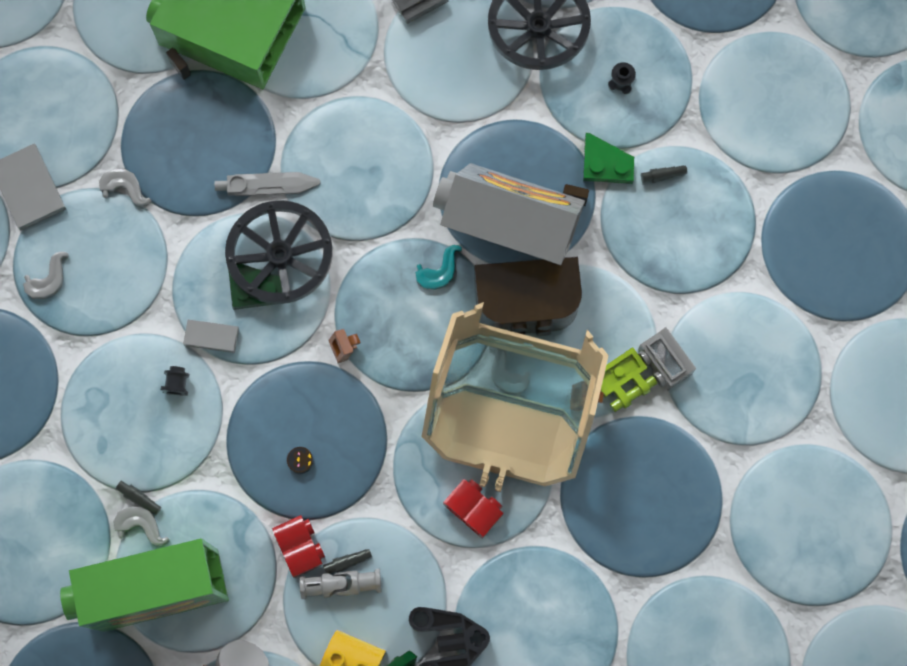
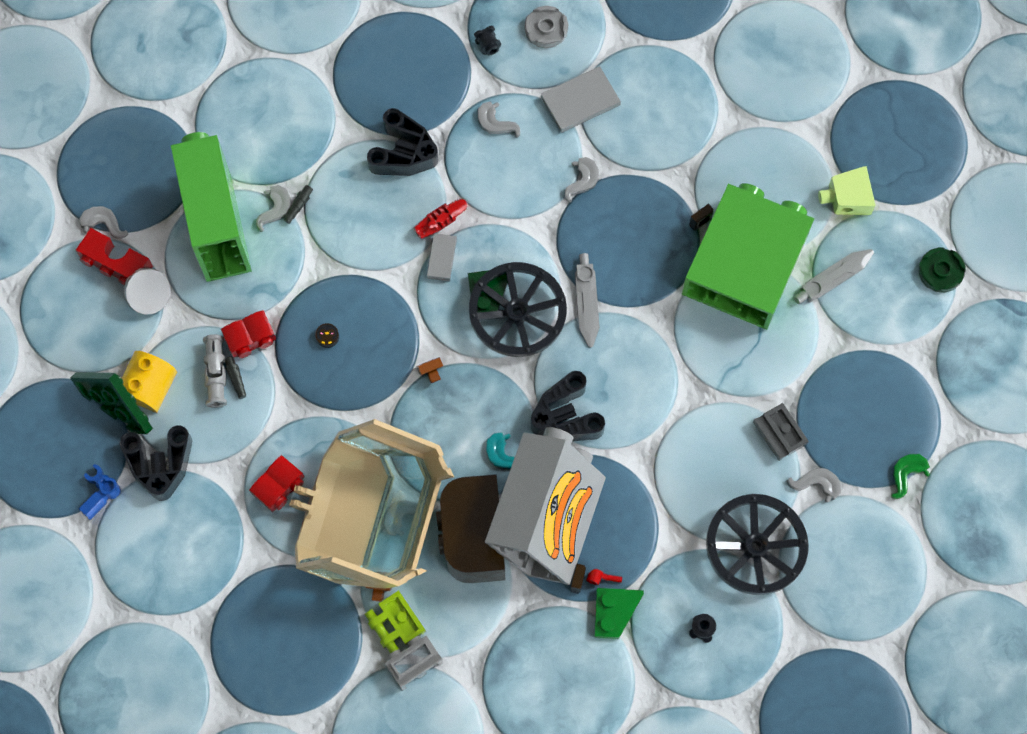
camera: 90 degrees right, 5 degrees down
(57, 368) = (412, 152): none -> black connector
(164, 336) = (440, 218): none -> red hinge
(175, 381) = (399, 228): black brick -> none
(375, 211) = (559, 395): none -> black connector
(570, 178) = (595, 576): none -> red hand
(661, 174) = (602, 662): pearl dark grey animal -> none

